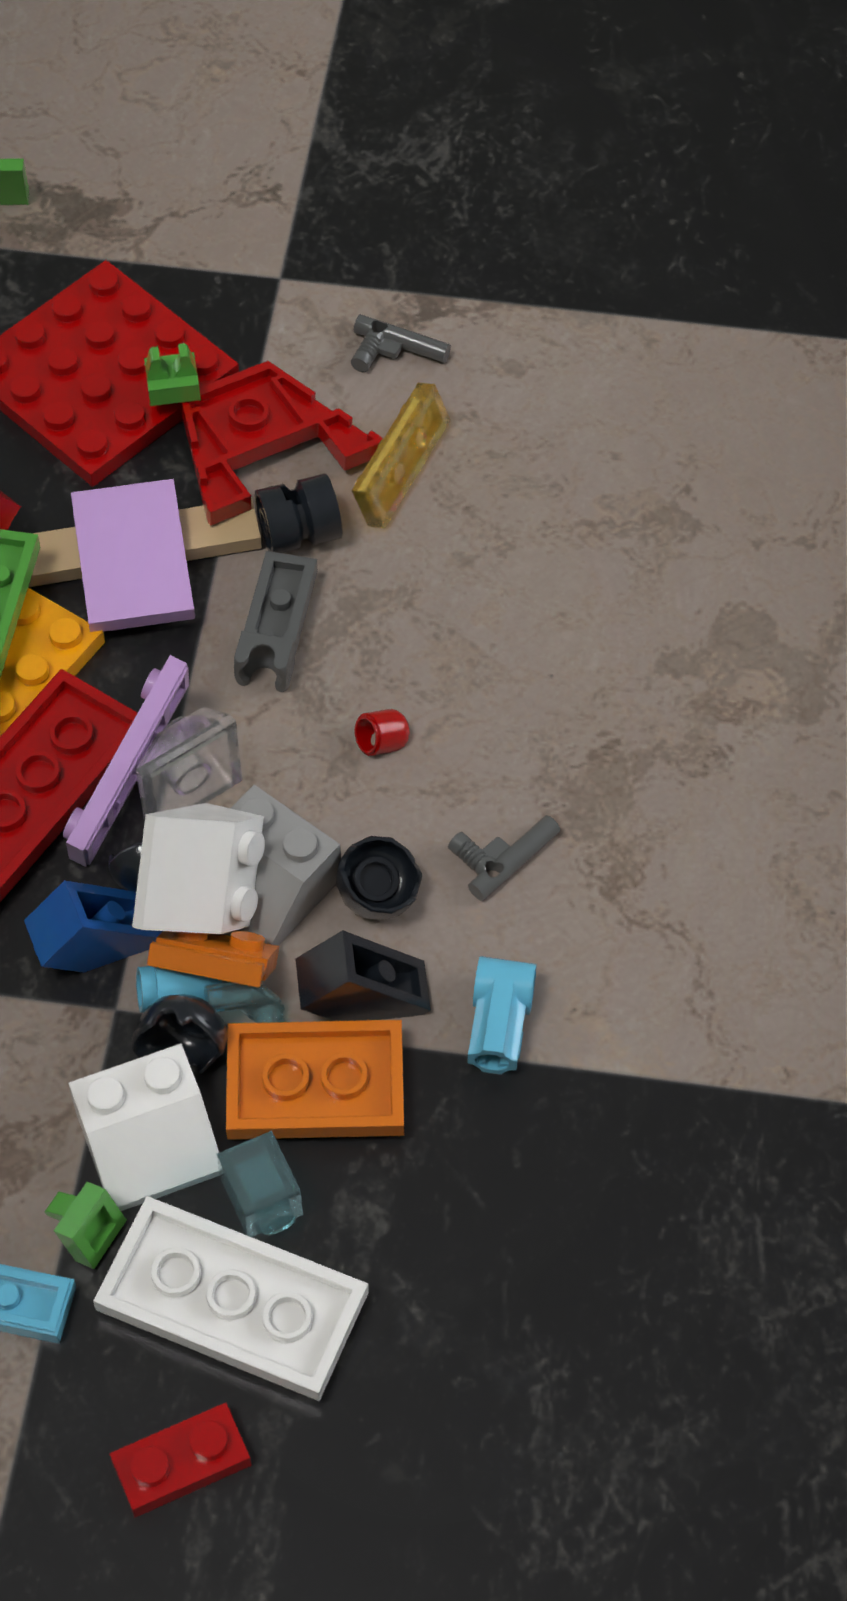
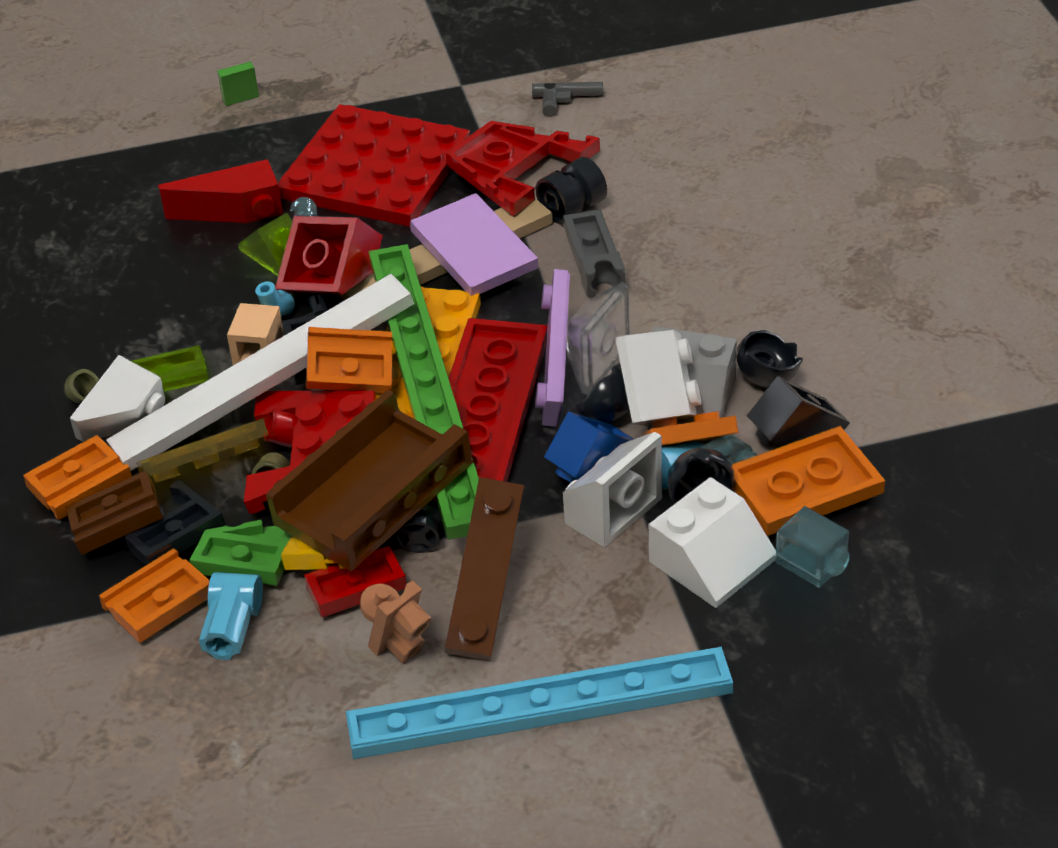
camera: 20 degrees left, 15 degrees down
(76, 1006) = (616, 490): none -> white slope
(86, 1222) = (706, 609): bright green tile -> none
(172, 376) = (436, 142): bright green tile -> none
(180, 1459) = (868, 723): red plate -> none
(232, 1297) = (838, 616): white plate -> none
(390, 731) = (706, 281): red piece -> none
(401, 455) = (615, 143): clear yellow plate -> none
(500, 856) = (833, 331): dark grey hose -> none
(501, 1000) = (898, 397): medium azure piece -> none

